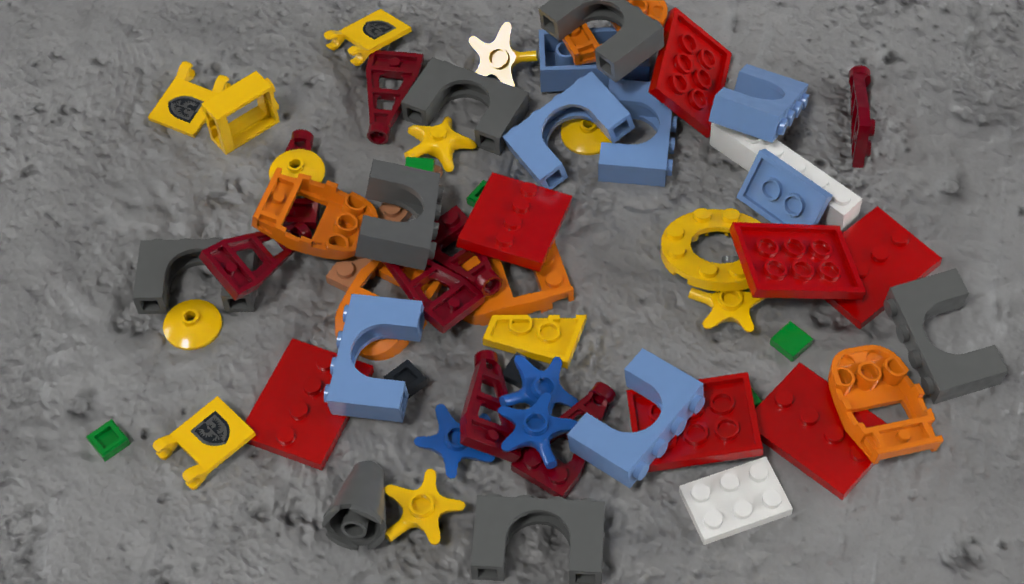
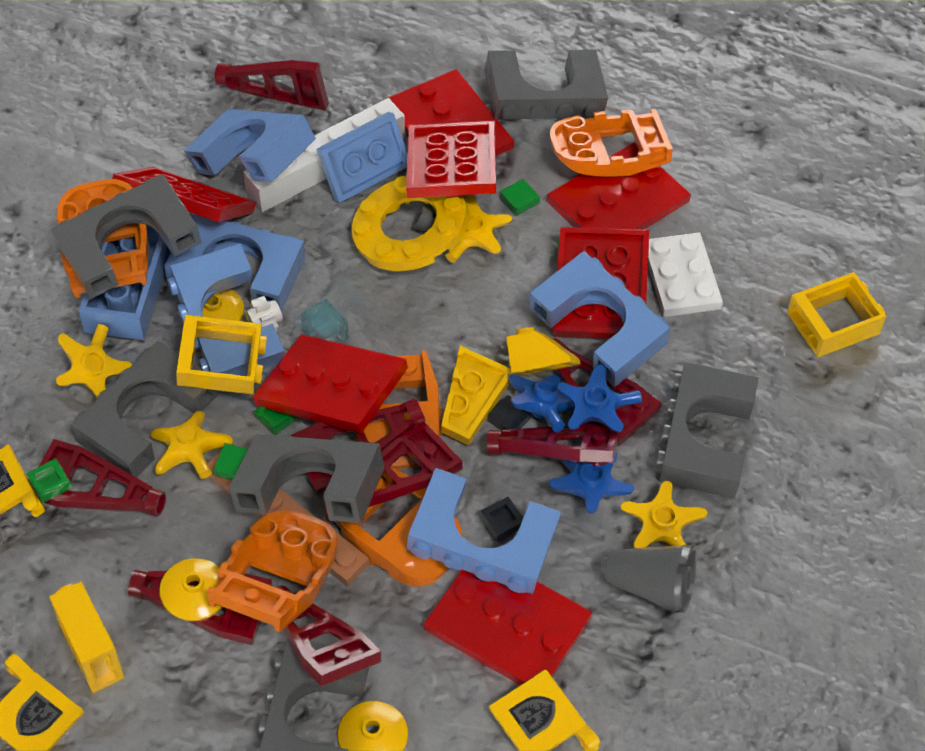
camera: 85 degrees left, 0 degrees up
(380, 58) = (49, 480): none -> green tile
(506, 106) = (221, 330): none -> yellow window
(580, 162) = (264, 312): none -> white gear
(585, 373) = (536, 353): none -> yellow slope
(586, 207) = (324, 321): none -> clear light blue panel

